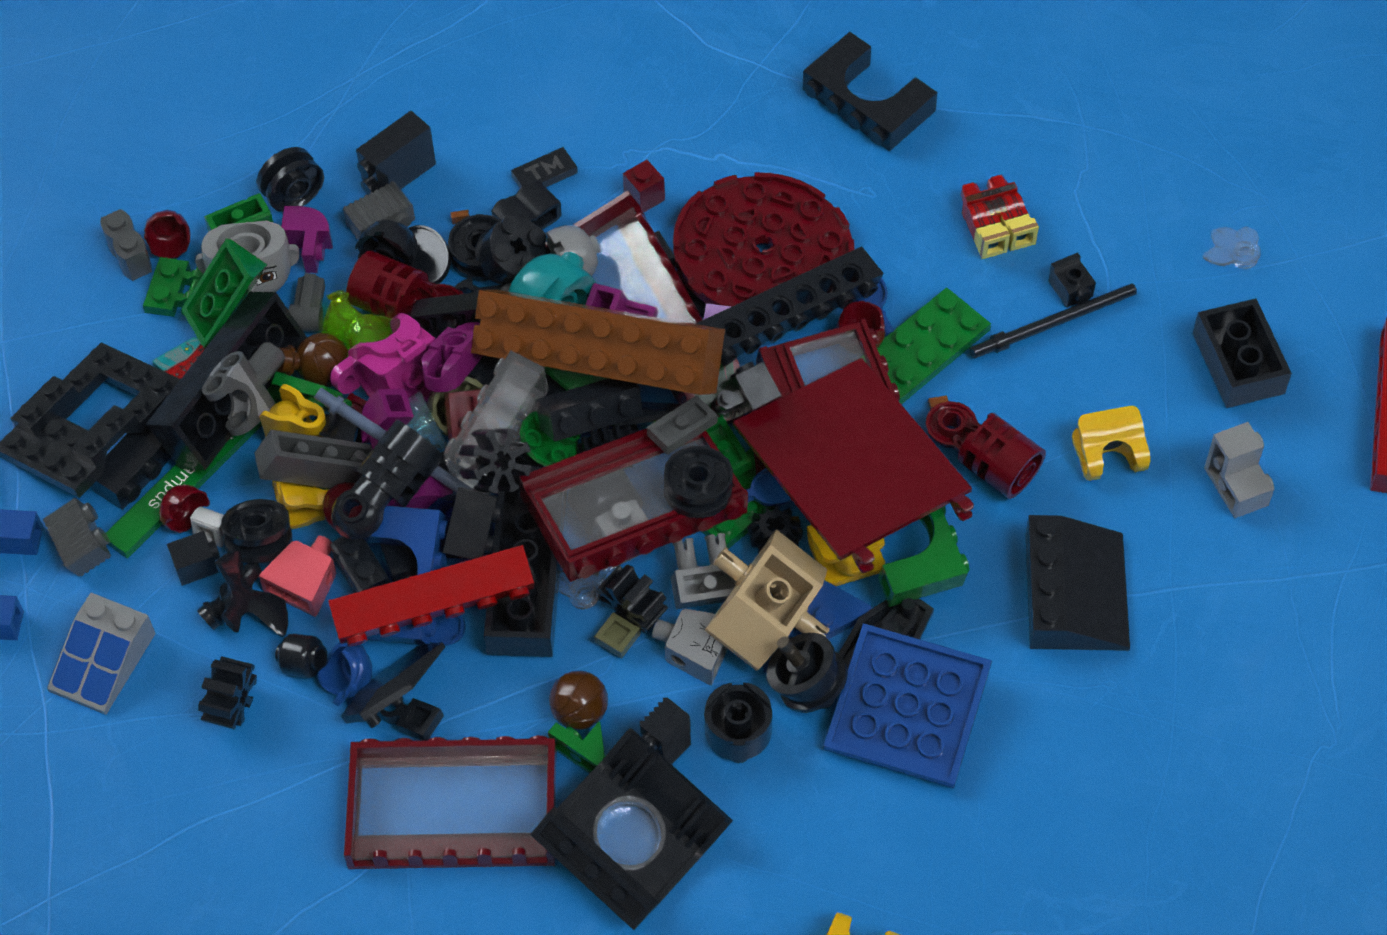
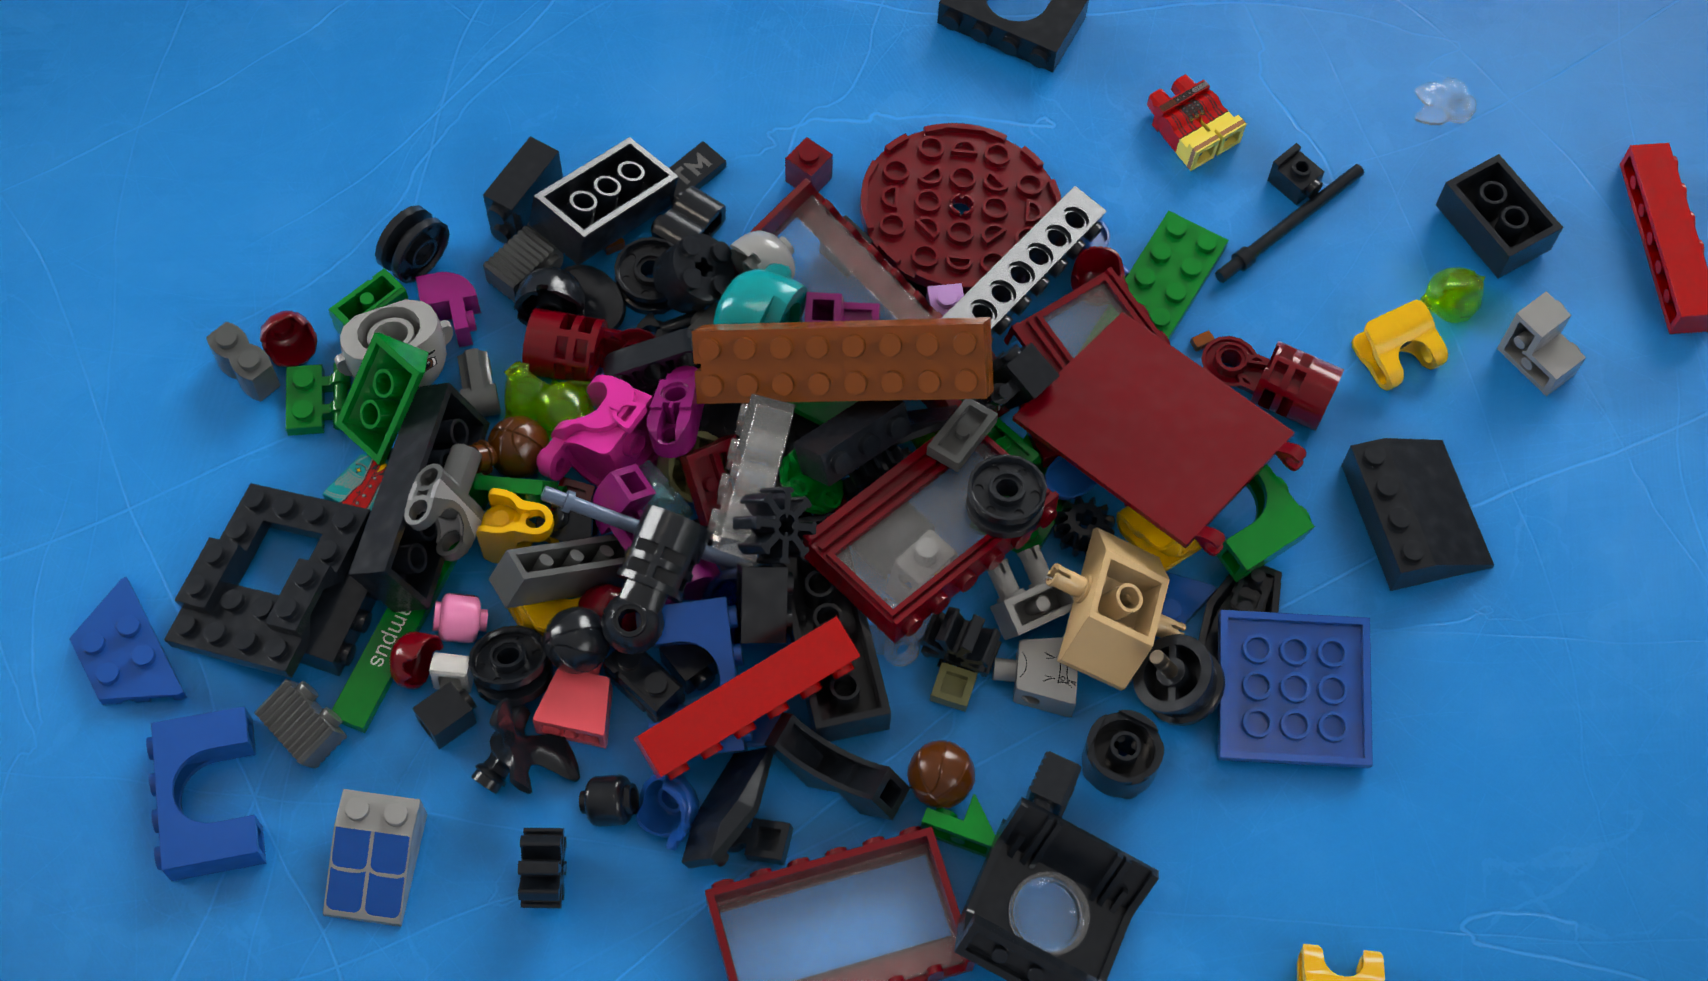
camera: 20 degrees left, 5 degrees up
(230, 484) = (459, 618): none -> bright pink head
(309, 520) = (575, 640): none -> black piece
(457, 176) = (603, 200): none -> black brick
(485, 671) = (822, 765): none -> black arch
(1178, 412) = (1454, 294): none -> clear neon green hat

